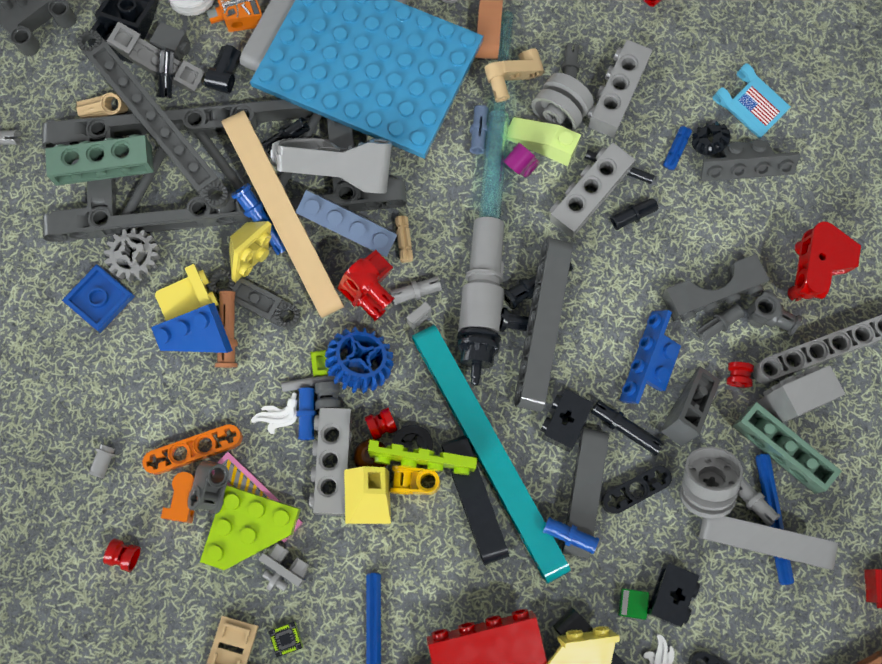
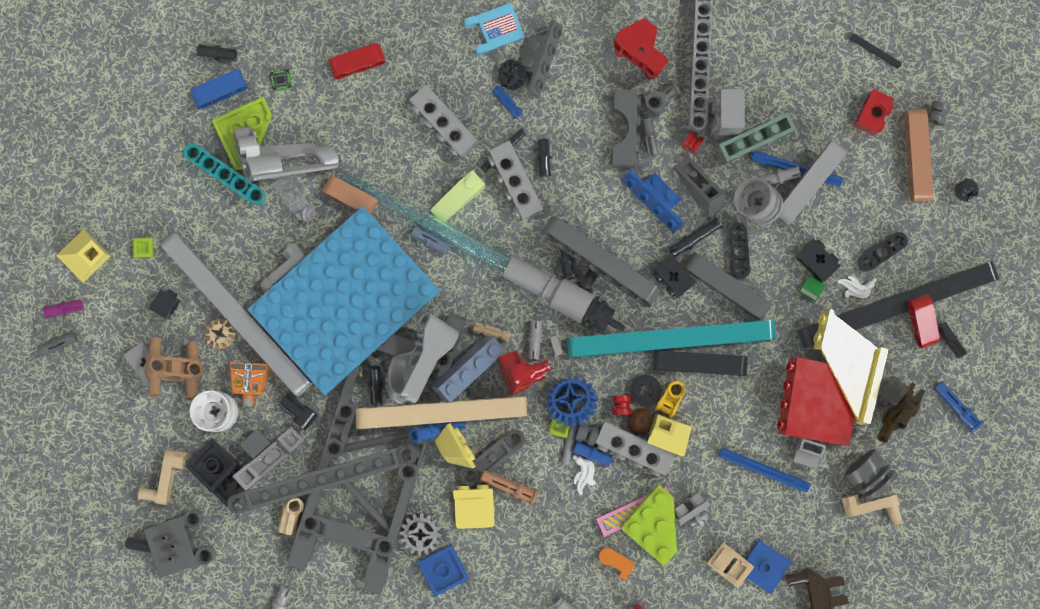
camera: 65 degrees left, 10 degrees up
(137, 162) = (338, 561): sand green brick -> none
(165, 73) = (284, 457): black axle -> none
(192, 447) = (580, 542): orange beam -> none
(193, 332) = (502, 509): blue wing -> none
(208, 488) = (618, 539): dark grey piece -> none
(286, 639) = (738, 527): tile -> none
(394, 452) = (659, 392): lime wing -> none
(498, 72) = (396, 179): tan beam -> none
(521, 160) = (472, 223): magenta piece -> none
(562, 101) = (441, 171): light grey wheel -> none
(570, 65) = (409, 149): dark grey pin -> none
(571, 535) = (753, 310): blue pin -> none

